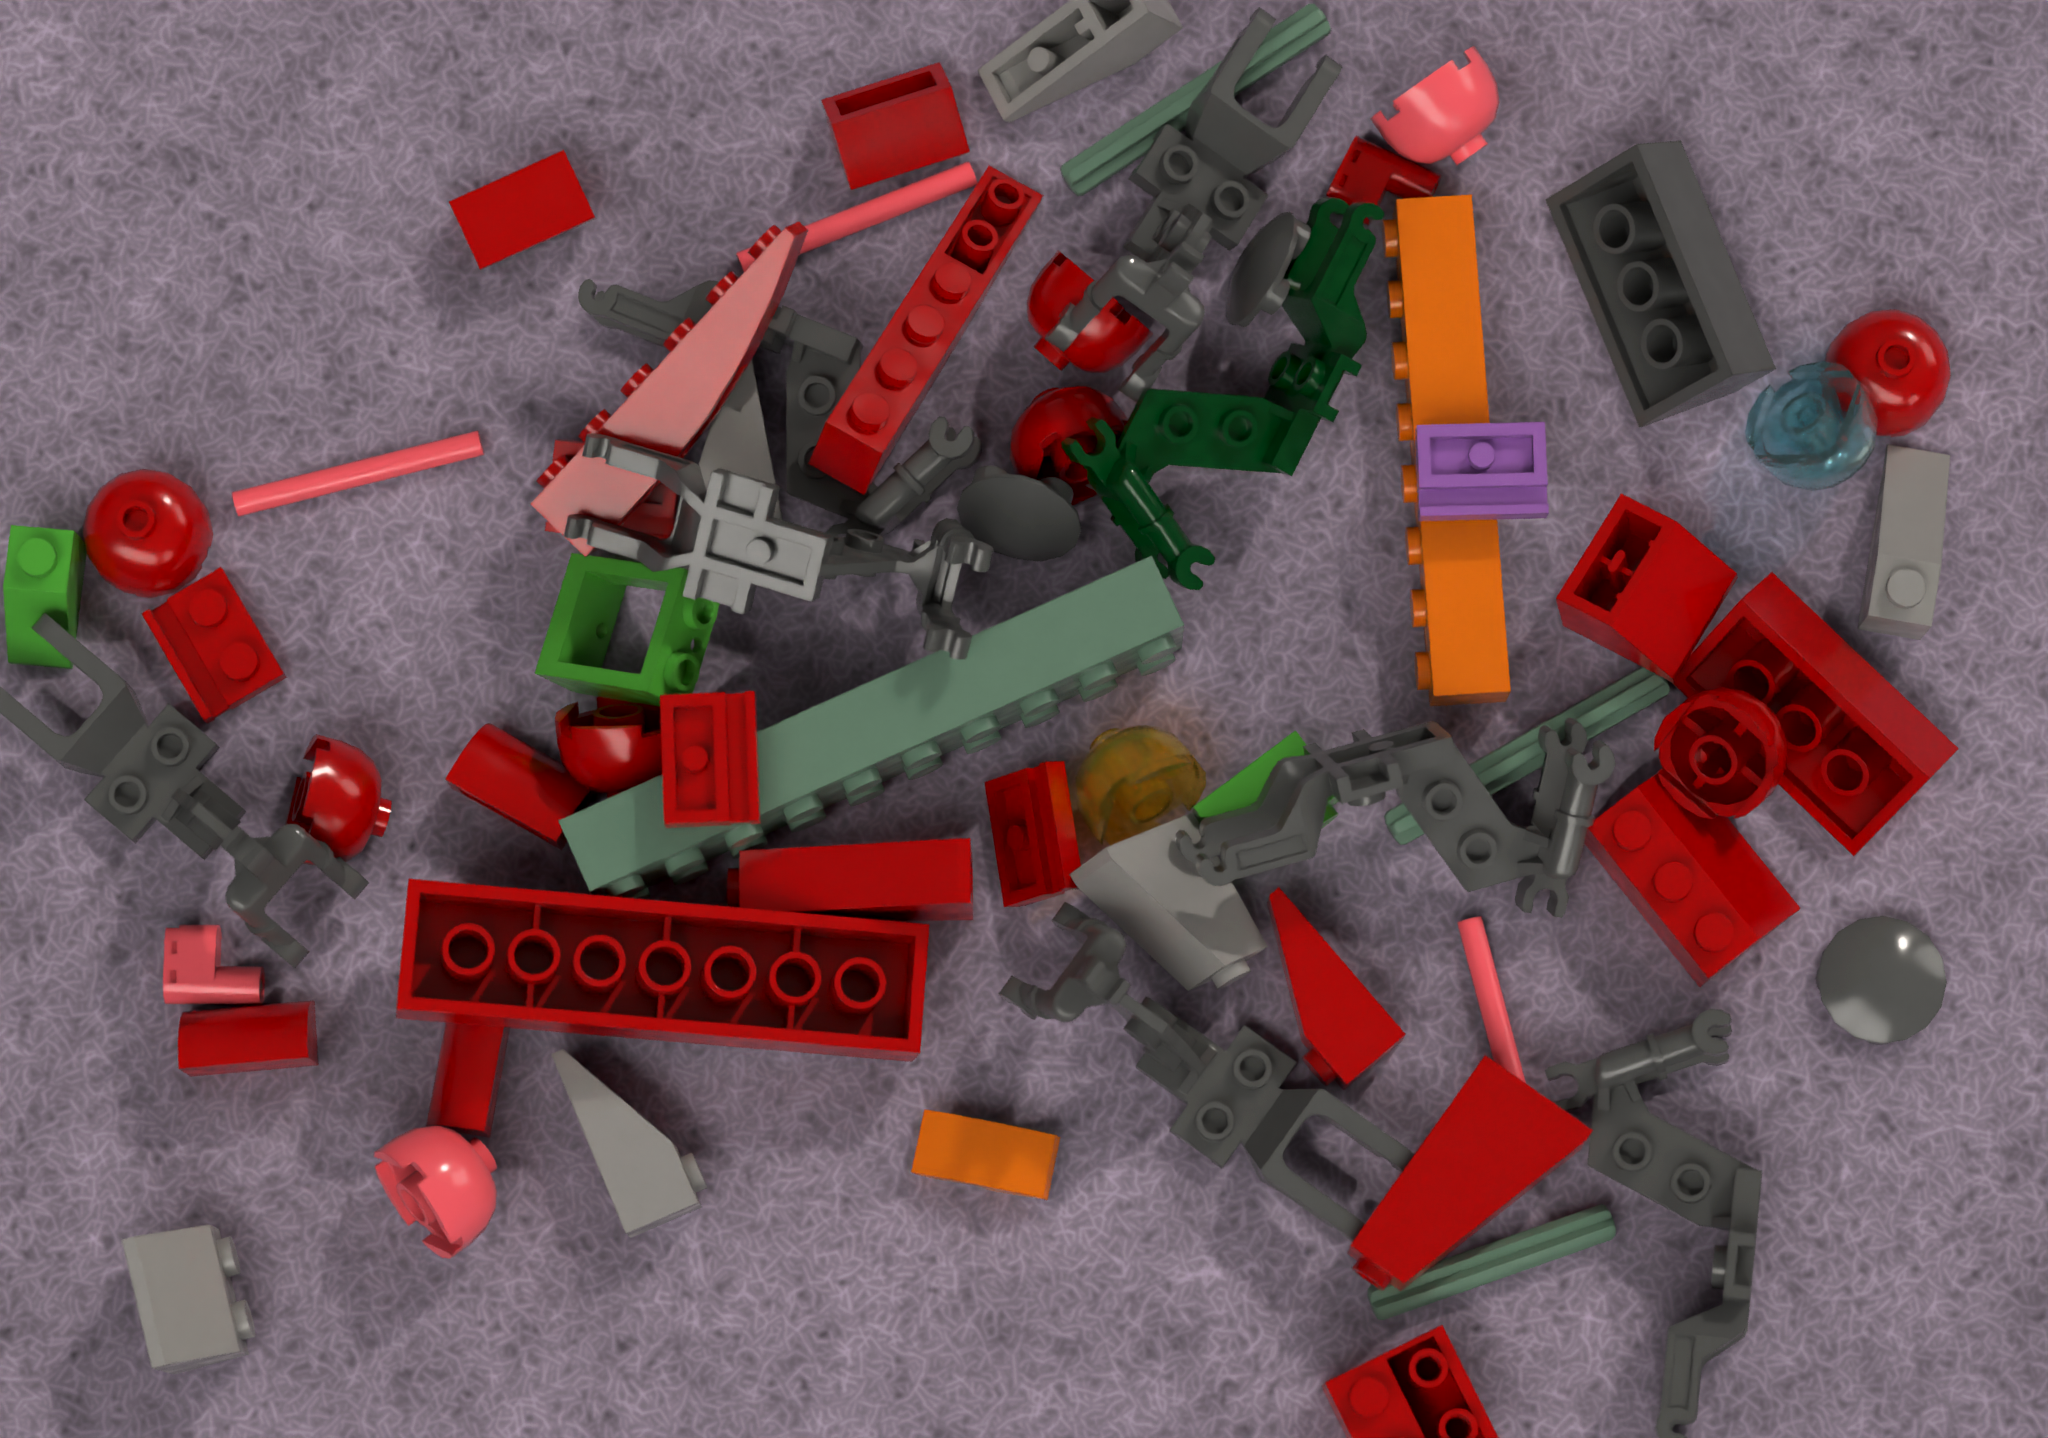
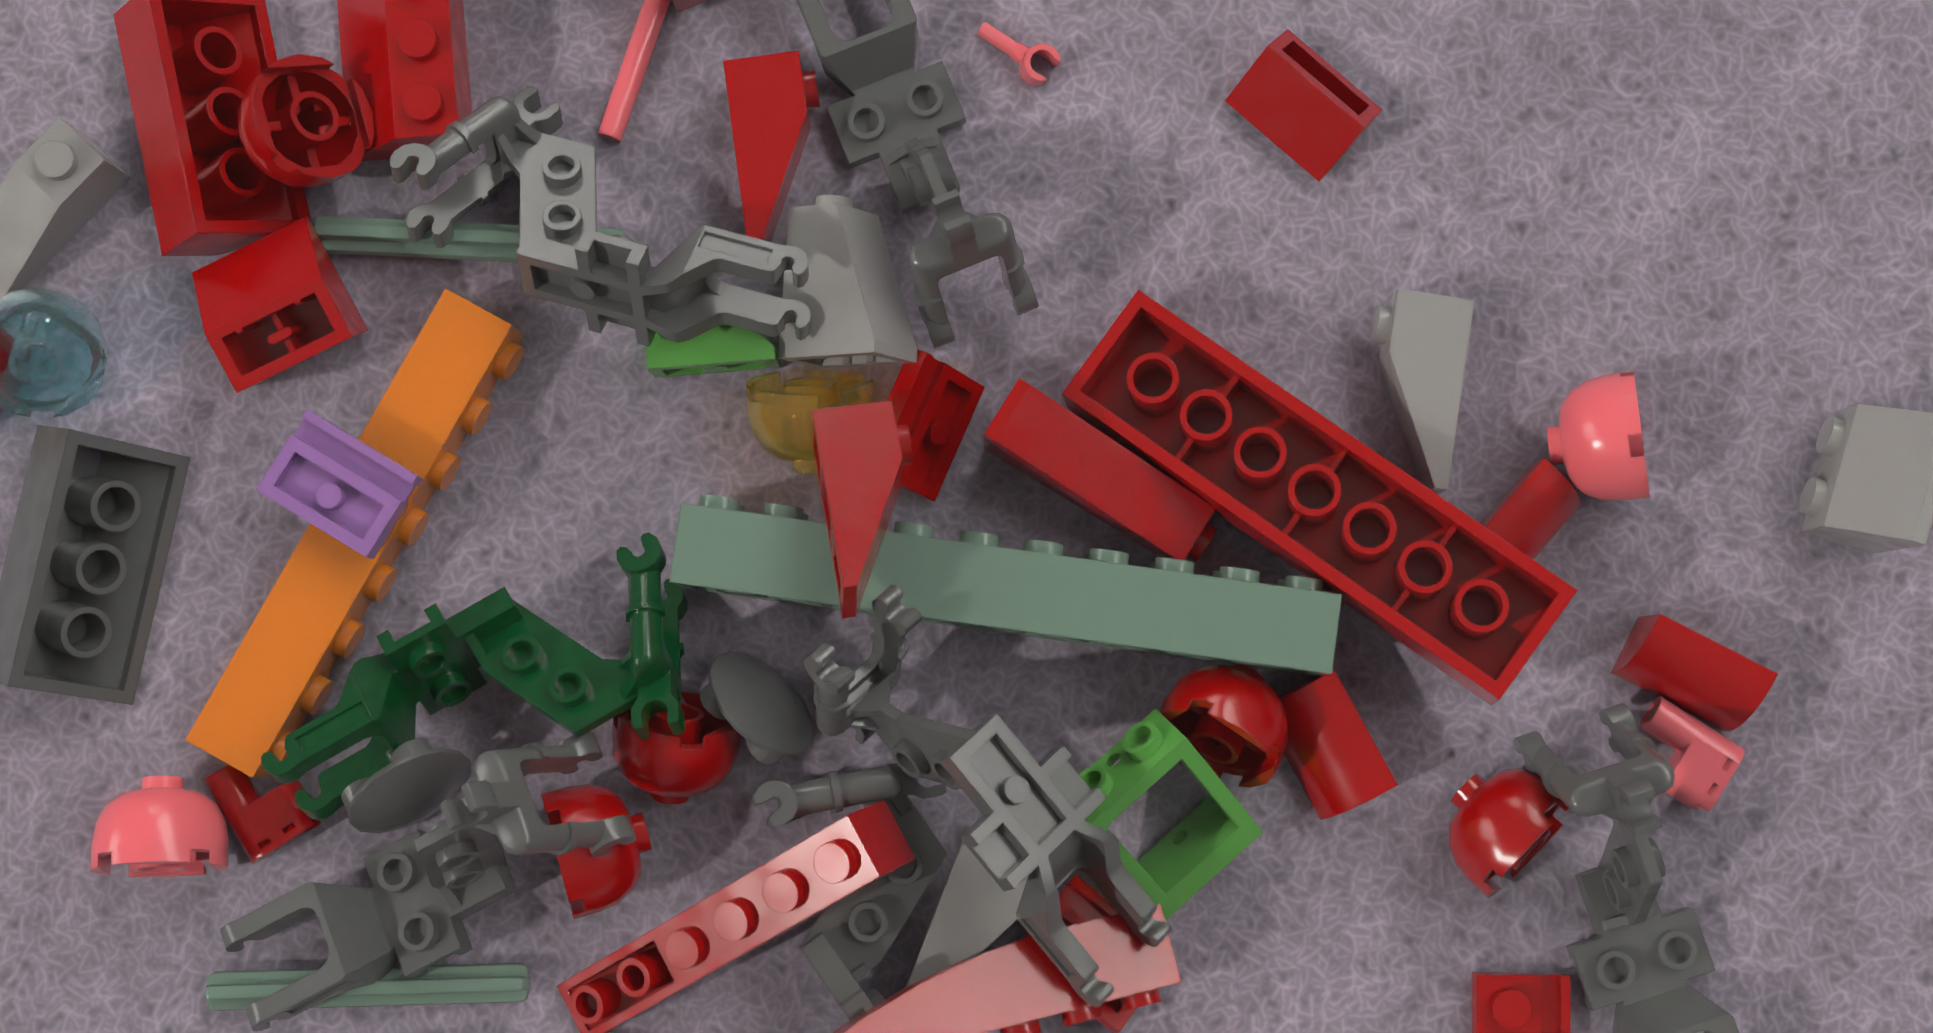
camera: 150 degrees left, 5 degrees up
(709, 759) = (1170, 638): red plate -> none
(880, 1329) = (1302, 104): none -> red brick
(985, 1154) = (1129, 191): orange slope -> none
(1045, 730) = (859, 481): none -> red slope
(1163, 1221) = (1020, 53): none -> coral hand

